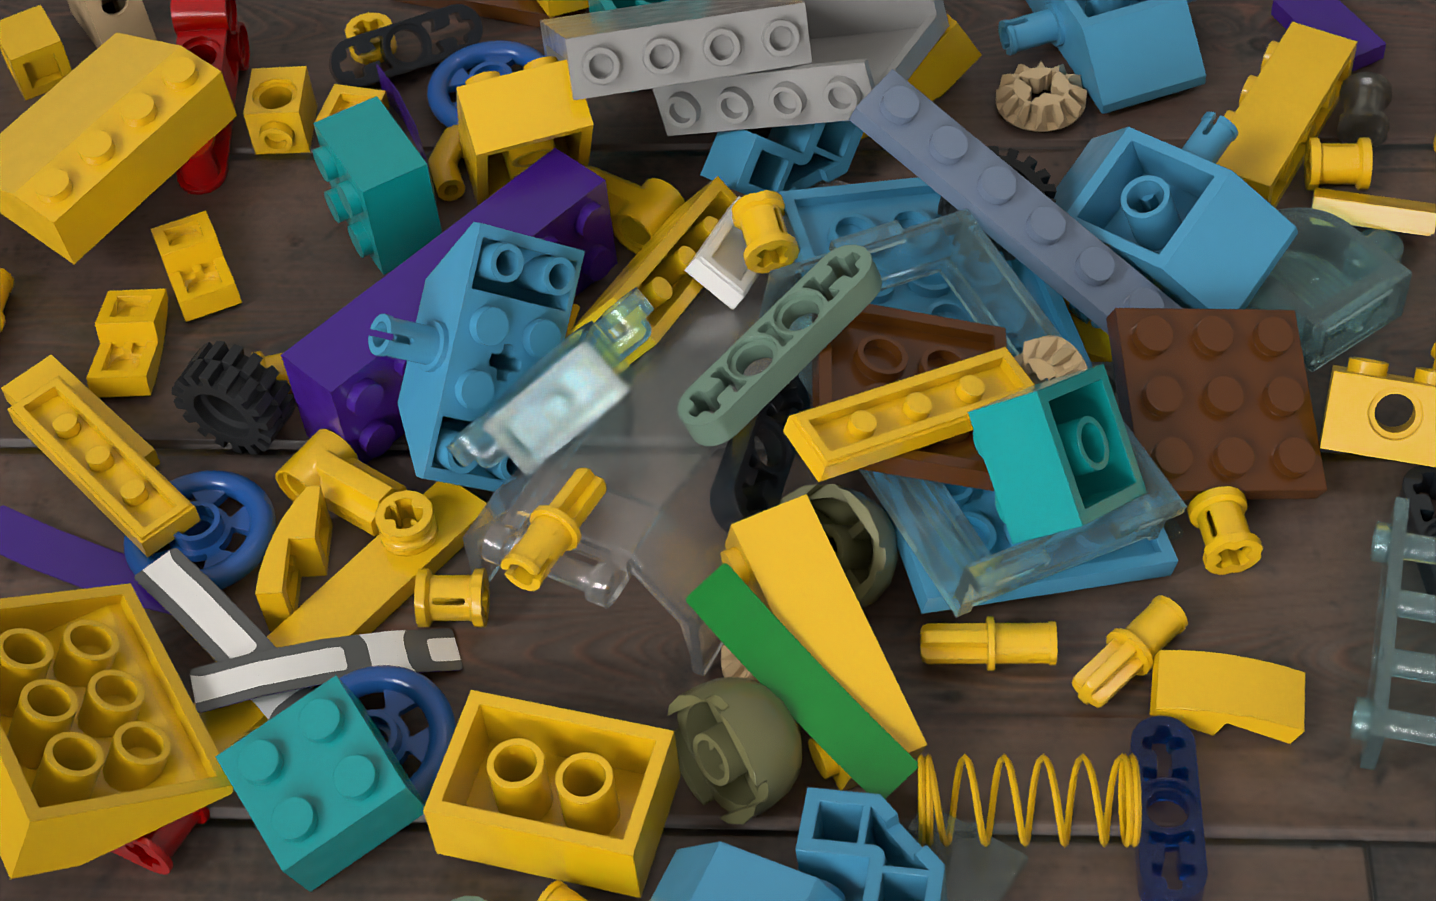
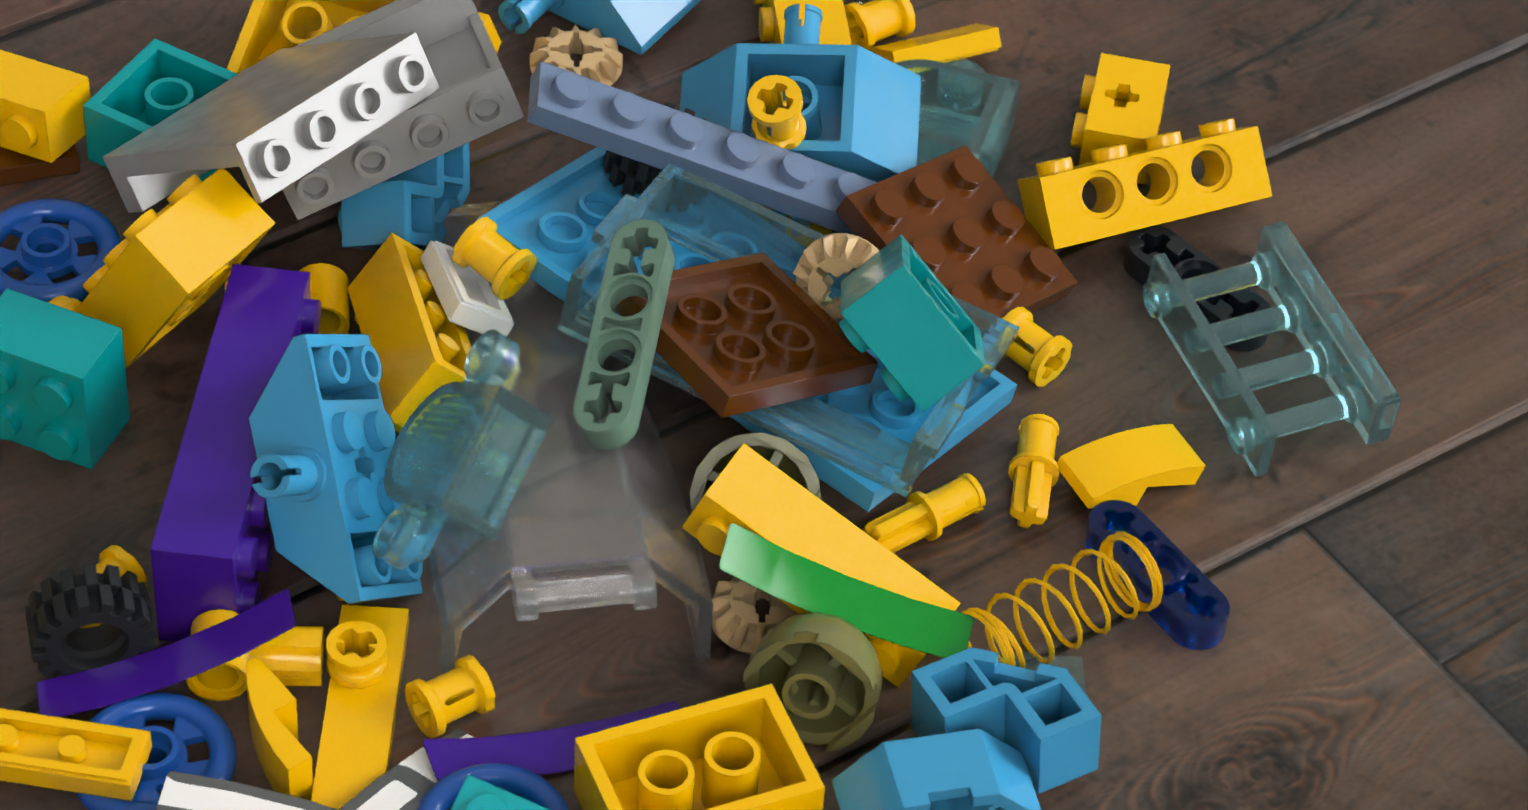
camera: 45 degrees left, 5 degrees down
(259, 458) = (167, 664): none -> dark purple sticker
(461, 672) = (536, 751): none -> dark purple sticker
(553, 530) = (578, 560): yellow axle -> none
(744, 469) = (662, 456): black beam -> none
(901, 414) = (771, 344): yellow tile -> none
(1105, 200) = (770, 110): none -> yellow bush

